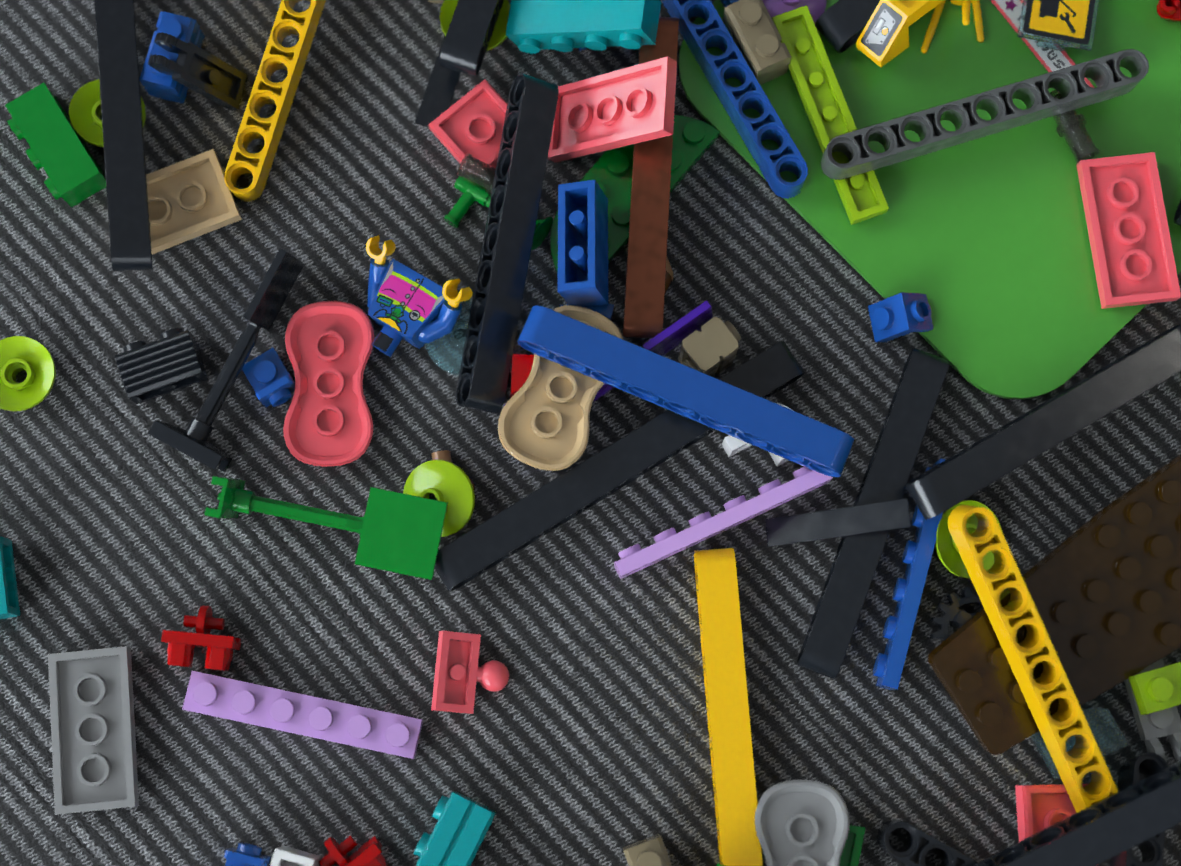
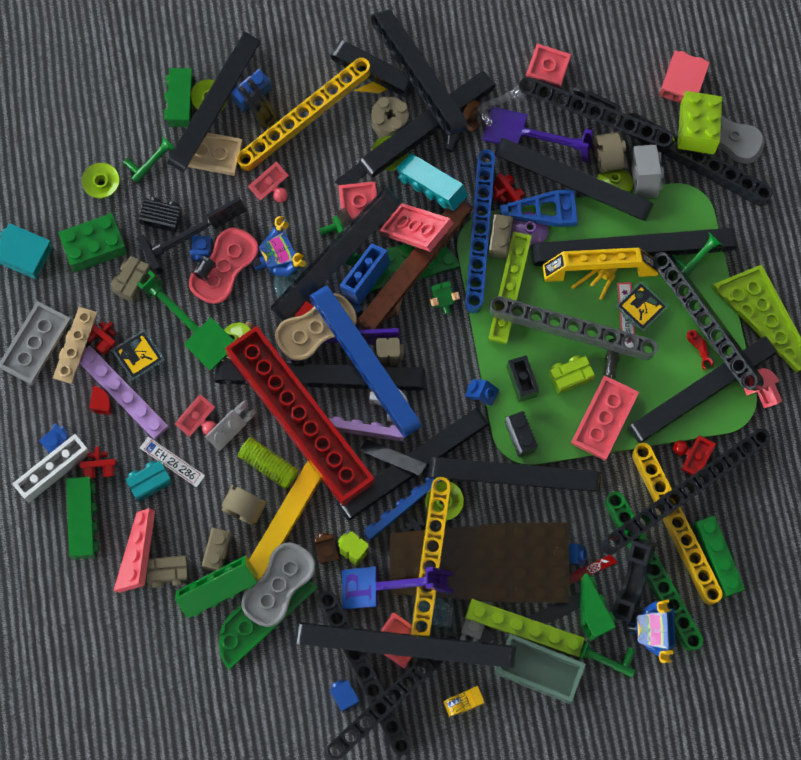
camera: 30 degrees right, 5 degrees down
(75, 490) = (92, 243): none -> green brick
(77, 315) = (143, 170): none -> green piece
(168, 691) = (75, 344): none -> tan bracket
(183, 503) = (131, 273): none -> dark tan brick
(278, 756) = (100, 402): none -> red brick
(288, 632) = (138, 355): none -> piece
(301, 410) = (204, 268): none -> black bush
(307, 193) = (268, 182): none -> coral plate
(470, 775) = (172, 461): none -> white sticker
(527, 650) = (229, 426): none -> light grey hinge
(607, 665) = (287, 476): none -> lime piece
(643, 558) = (300, 416): none -> red brick
(647, 774) = (244, 504): none -> dark tan brick
(728, 198) = (443, 296): none -> green piece
(830, 750) = (326, 548): none -> reddish brown bracket
(882, 722) = (353, 548): none -> lime brick
(941, 781) = (361, 585): none -> piece
(958, 251) = (522, 378): none -> black brick
(1019, 345) = (521, 434): none -> black brick
(1027, 194) = (571, 374): none -> lime brick

